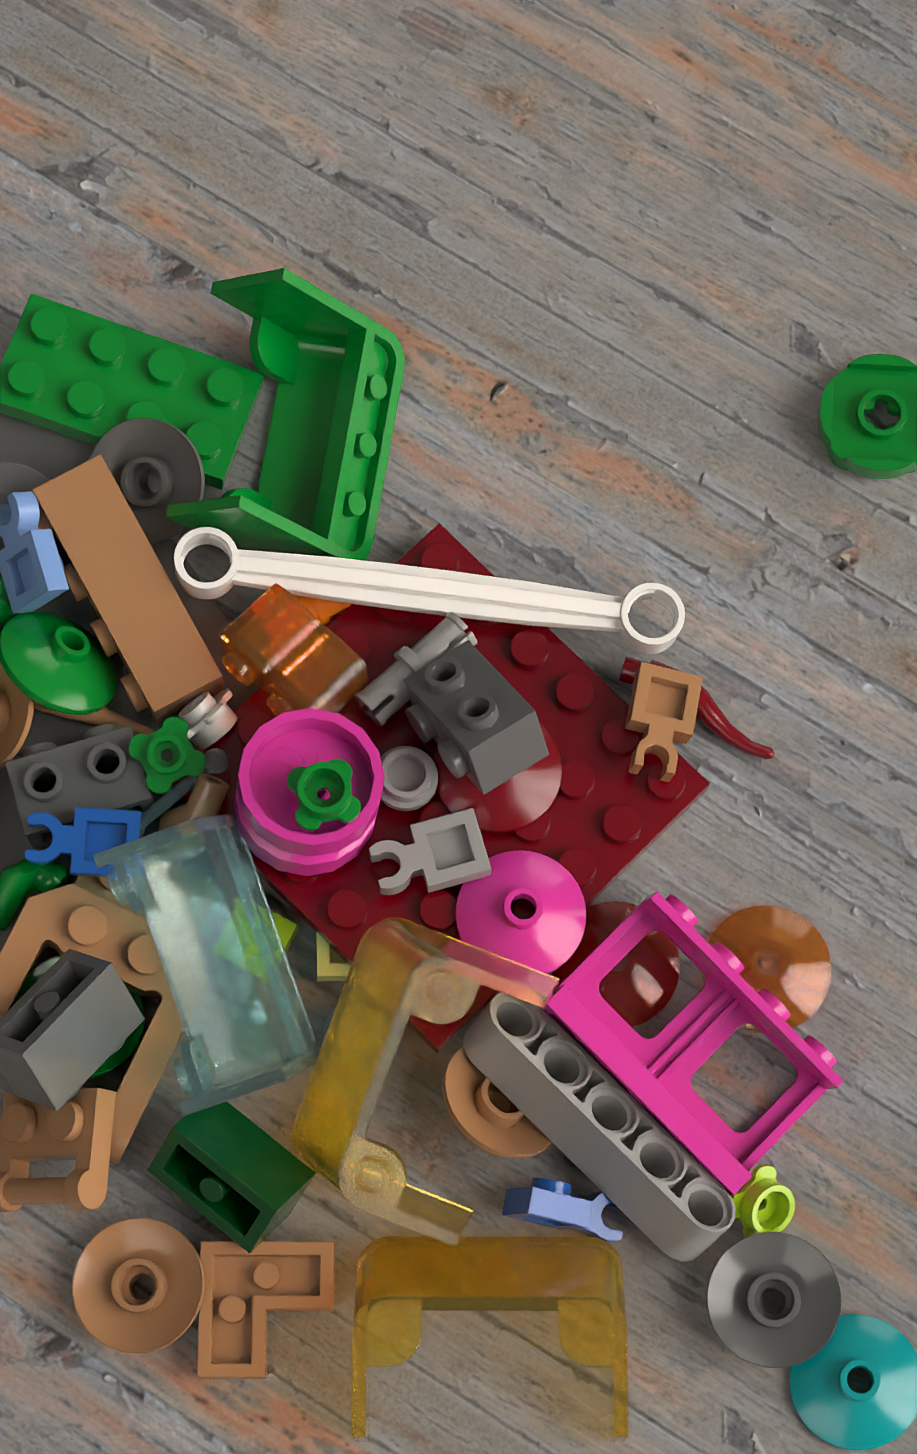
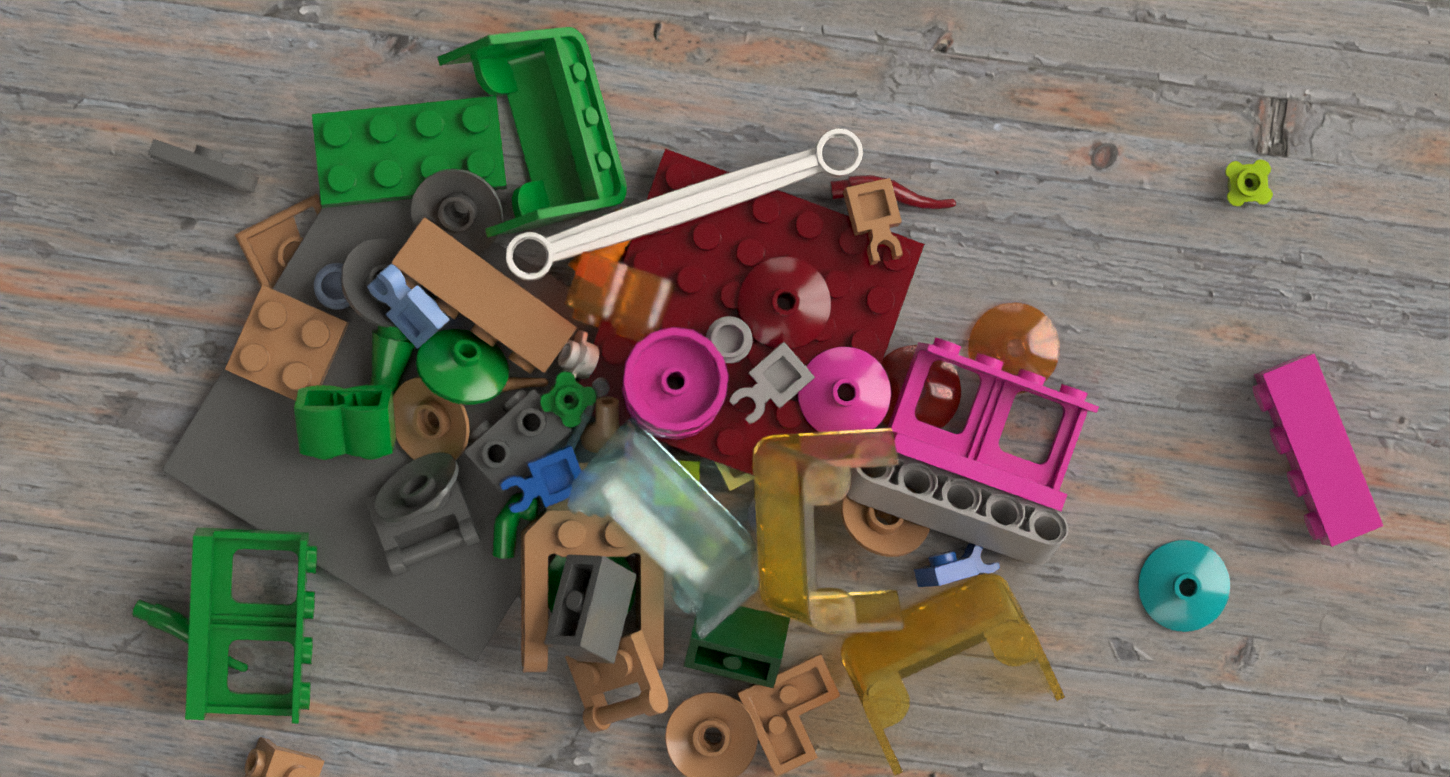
camera: 25 degrees left, 15 degrees up
(331, 776) = (691, 375): green plate -> none
(388, 691) = (701, 263): light grey pin -> none
(474, 718) = (759, 283): dark grey brick -> none
(763, 1203) = (1081, 504): lime plate -> none
(808, 1292) = (1136, 564): dark grey dish -> none

